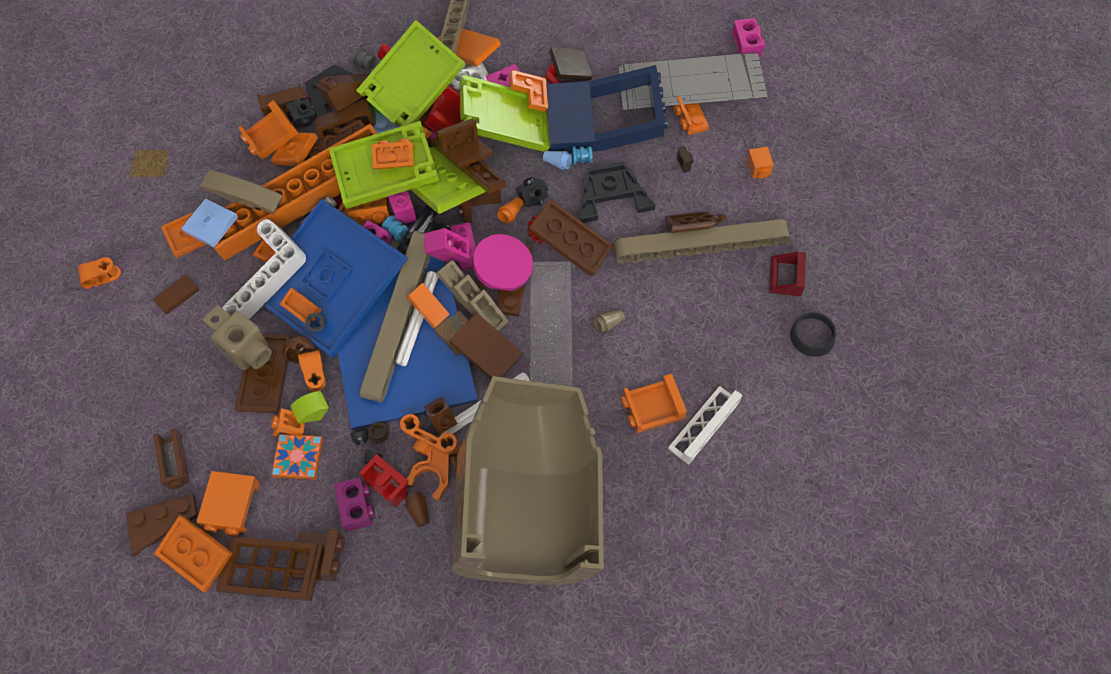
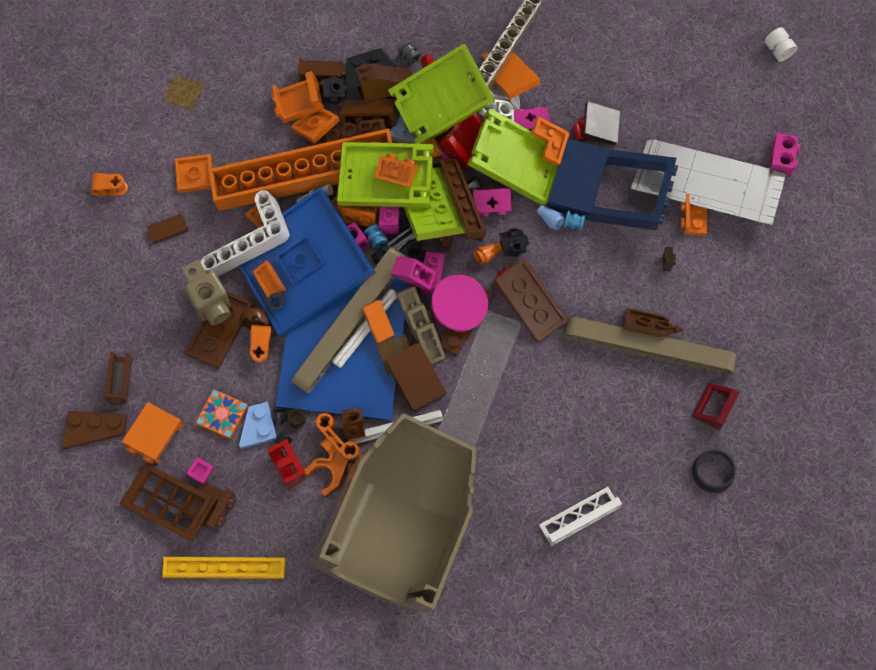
camera: 20 degrees right, 5 degrees up
(193, 553) = (111, 466): orange tile -> none
(209, 222) = (216, 174): light blue plate -> none
(241, 191) = (253, 155): dark tan slope -> none
(286, 423) = (224, 382): orange bracket -> none
(294, 522) = (200, 471): none -> dark pink tile
(310, 407) = (246, 375): lime brick -> none
(340, 455) = (257, 426): none -> light blue wing
(349, 505) = (250, 474): magenta brick -> none
(355, 616) = (224, 567): none -> yellow tile
(417, 508) = (305, 497): reddish brown cone -> none
(462, 144) = (463, 181): reddish brown bracket -> none
(506, 156) = (501, 195): none -> dark pink brick
(606, 321) = (533, 390): dark tan cone -> none
(612, 183) = (588, 258): black wing -> none
(654, 405) = (541, 482): orange panel -> none
(760, 162) = (738, 287): orange brick -> none

